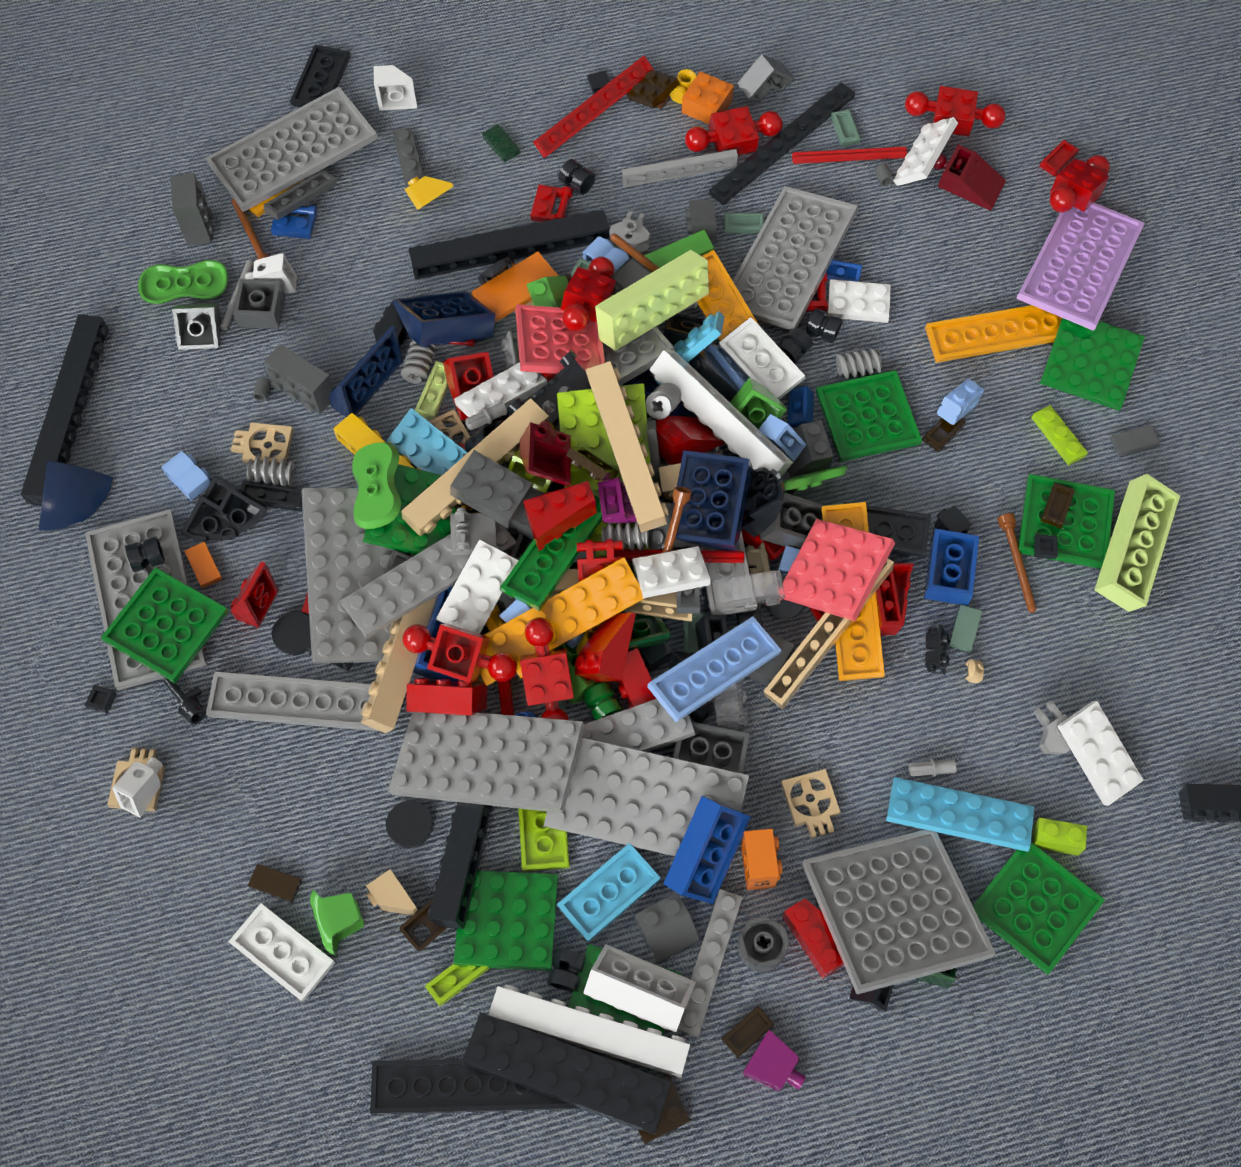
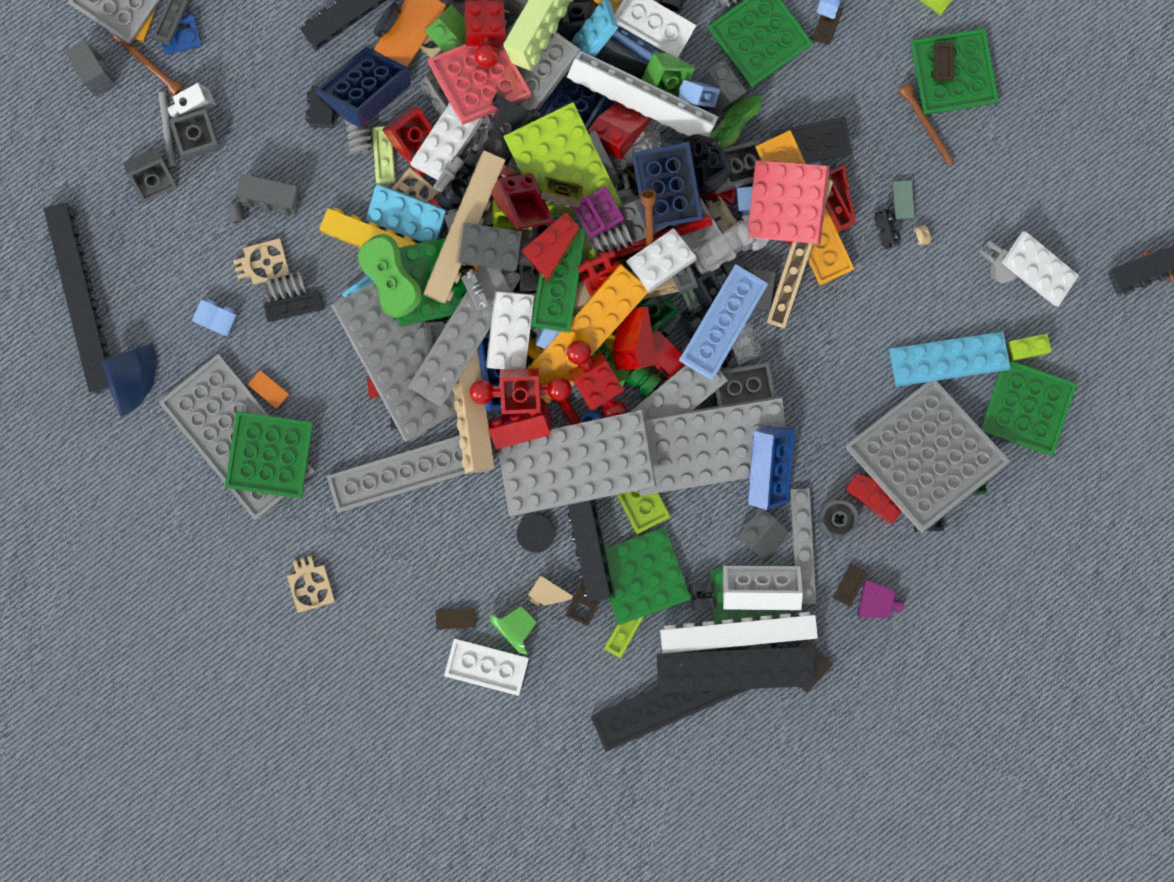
camera: 25 degrees left, 20 degrees up
(100, 699) = (245, 533): black tile -> none
(138, 786) = (319, 598): white torso -> none
(145, 554) = (222, 403): black wheel -> none
(166, 283) = (102, 143): bright green plate -> none
(190, 705) = (322, 513): black piece -> none
(223, 512) = (264, 338): black brick -> none
(255, 596) = (326, 402): red slope -> none
(292, 633) = (371, 418): black tile -> none
(367, 375) = (322, 167): dark blue slope -> none
(608, 892) = (709, 525): medium azure plate -> none
(626, 447) = (583, 168): tan brick -> none
(663, 400) = (592, 106): light grey piece -> none
(669, 479) = (627, 177): tan slope -> none
(760, 859) = (813, 456): orange brick -> none
(800, 406) = (700, 49): blue slope -> none
(816, 818) = (842, 405): tan piece -> none
(932, 768) = (916, 329): light grey axle -> none
(951, 567) = (875, 153): blue brick -> none
(952, 520) = (862, 112): black brick -> none
(1045, 546) = (944, 104): black tile -> none
(1137, 543) = (1017, 72): yellowish green brick -> none

